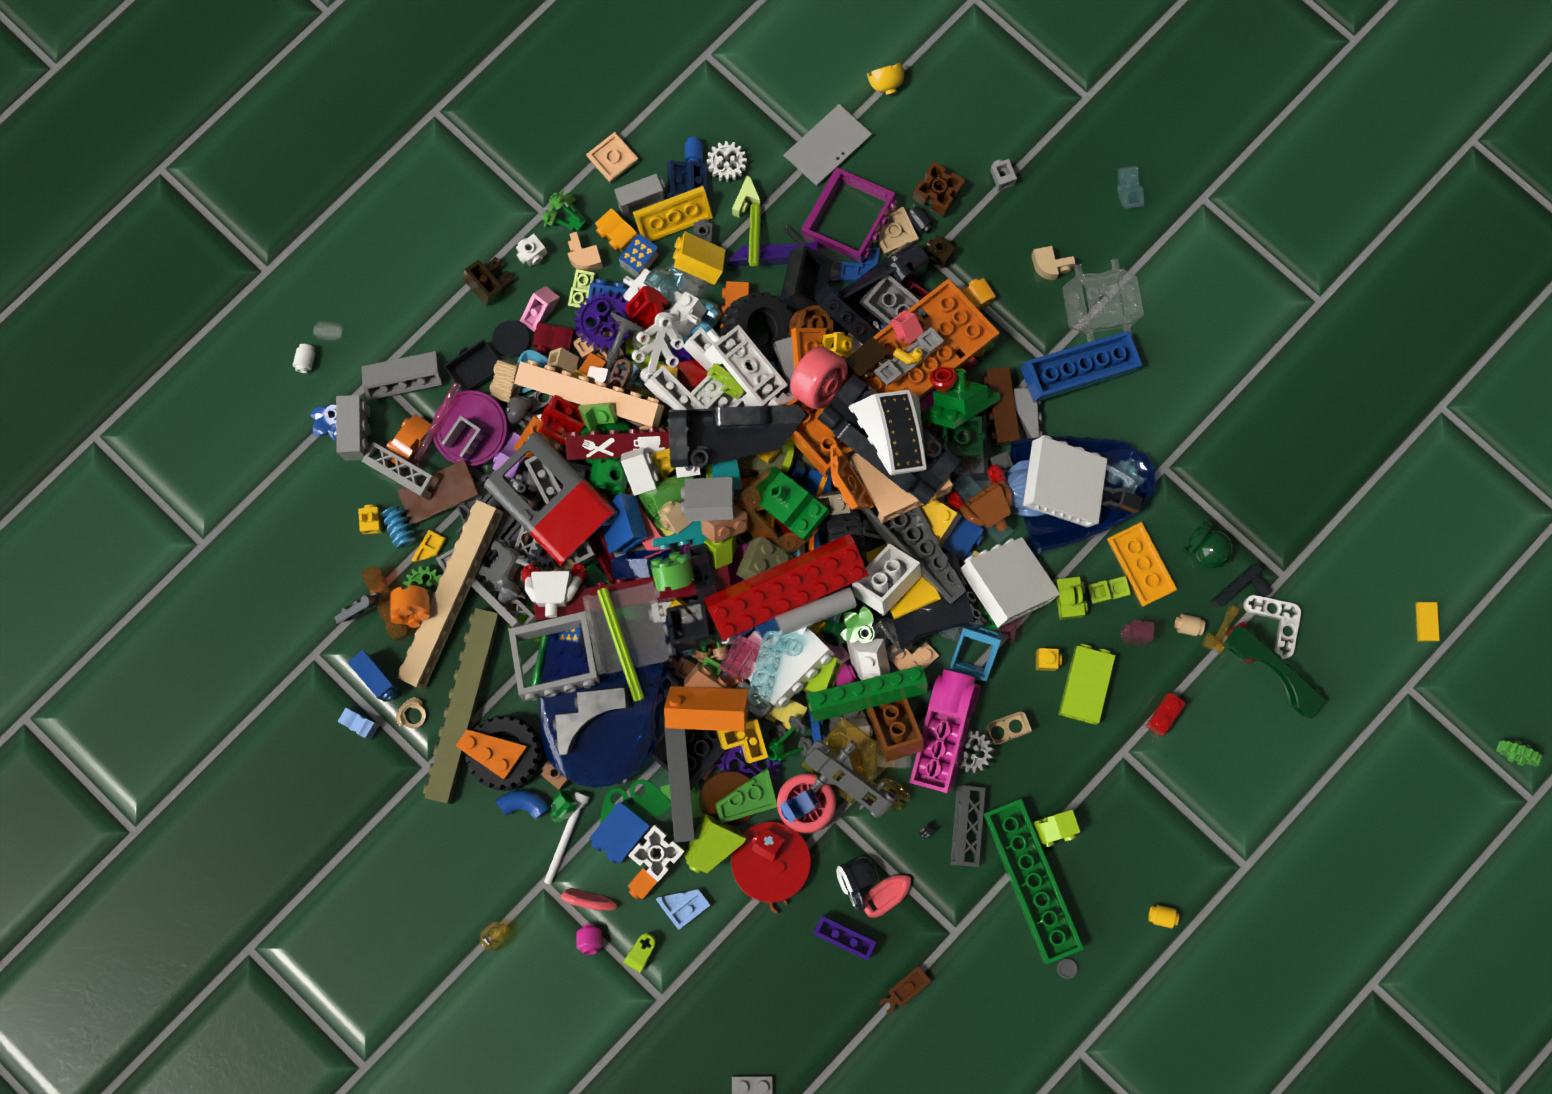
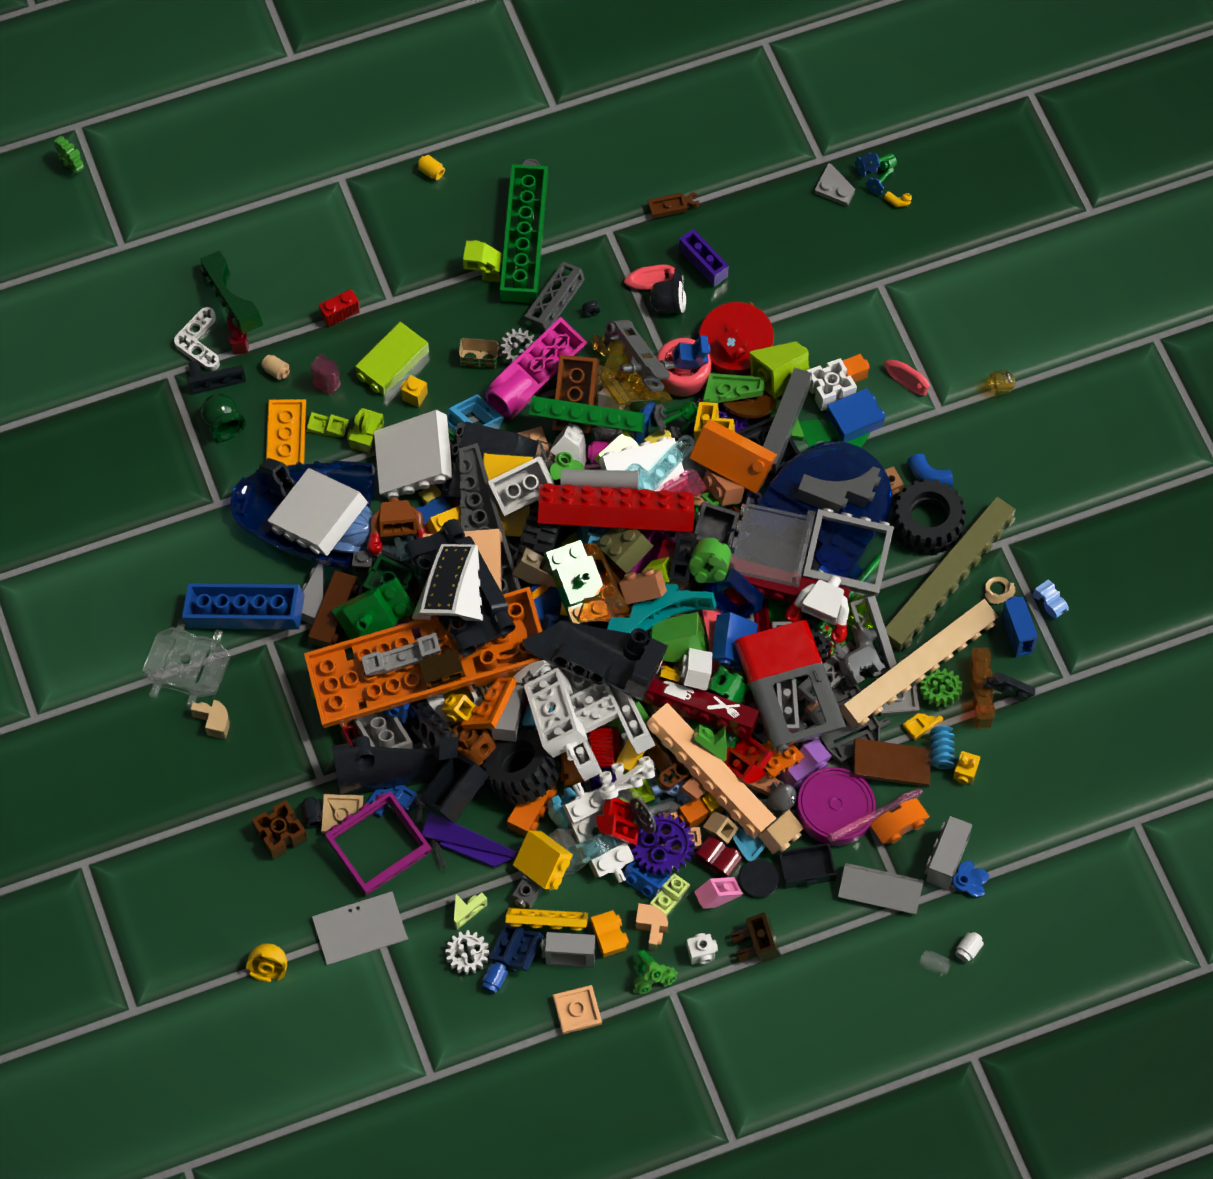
camera: 155 degrees left, 15 degrees down
(389, 472) = (924, 791): light grey fence -> none
(409, 606) = (960, 660): orange brick -> none
(456, 431) = (842, 802): light grey piece -> none
(494, 753) = (939, 509): orange wing -> none
(563, 806) = (895, 454): green rock -> none
(582, 800) = (880, 454): white piece -> none
(589, 939) = (920, 347): dark pink head -> none
(620, 644) = (784, 530): lime axle -> none
(638, 256) = (599, 896): piece -> none
(638, 954) = (880, 320): lime piece -> none
(672, 517) = (684, 613): tan brick -> none
(683, 906) = (827, 339): light blue wing -> none
(708, 499) = (648, 605): light grey brick -> none
(730, 385) = (579, 708): lime slope -> none
(754, 234) = (478, 864): lime axle -> none
(819, 377) = (495, 657): coral wheel -> none
(847, 481) = (515, 565): orange wing -> none
(906, 327) = (389, 681): coral brick -> none
(908, 358) = (401, 652): yellow arm -> none
(939, 251) = (311, 772): dark brown brick -> none
(943, 378) = (380, 624): red brick -> none
(978, 293) = (302, 720): light orange brick -> none
(1003, 167) = (209, 813): light grey brick -> none
(1125, 471) = (260, 500): clear light blue hips -> none
(1129, 190) = (101, 748): clear light blue brick -> none
(1215, 642) = (261, 345): clear yellow brick -> none
(1427, 621) = (72, 286): yellow tile -> none

